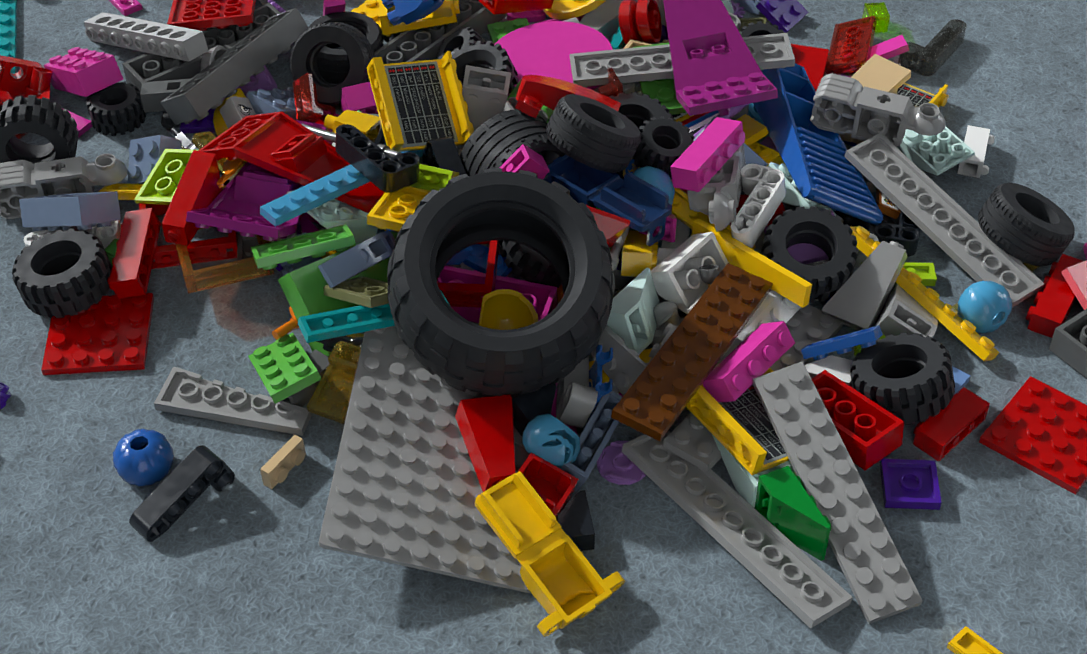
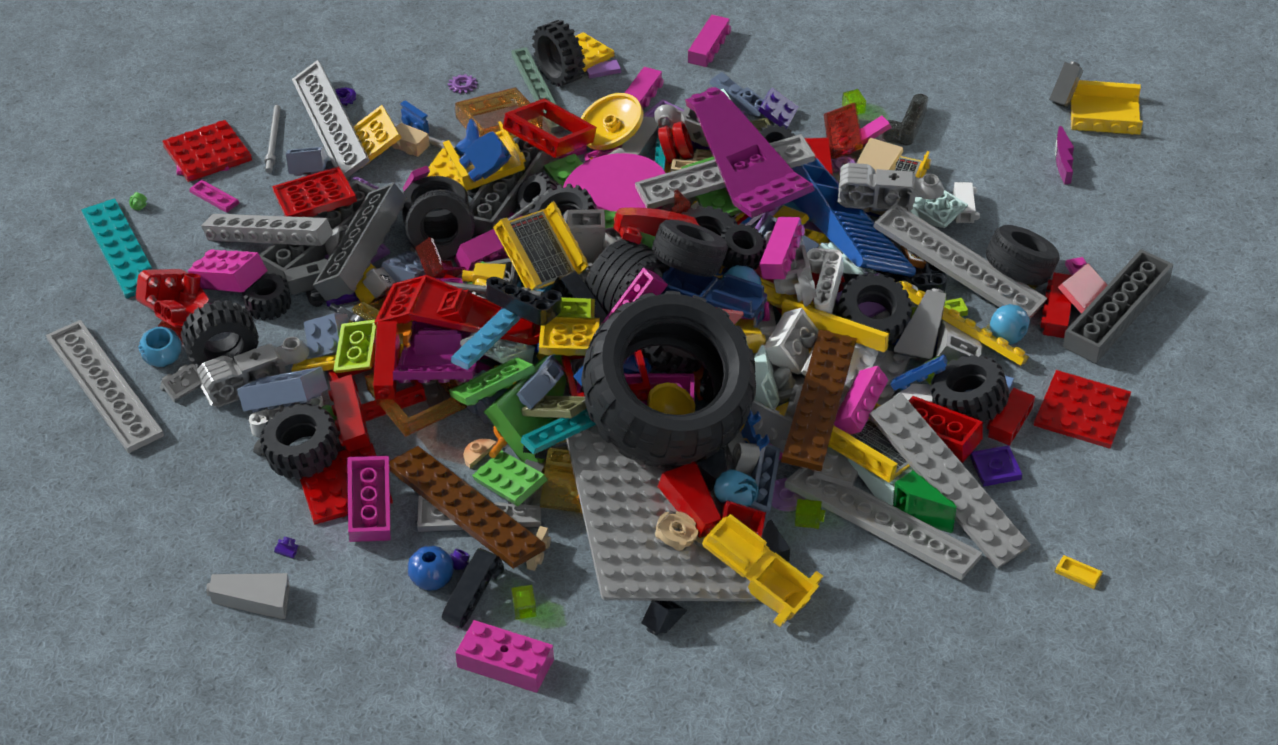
camera: 15 degrees left, 0 degrees up
(107, 357) = (369, 499): none -> dark pink brick
(180, 591) = (505, 656): none -> dark pink brick
(182, 450) = (460, 559): none -> dark purple plate
(220, 394) = (466, 507): none -> reddish brown plate
(235, 526) = (523, 602): none -> clear neon green brick
(262, 329) = (477, 450): none -> light nougat plate
(398, 585) = (662, 616): none -> black slope
(453, 489) = (673, 538): none -> tan plate
(639, 493) = (809, 513): none -> clear neon green brick

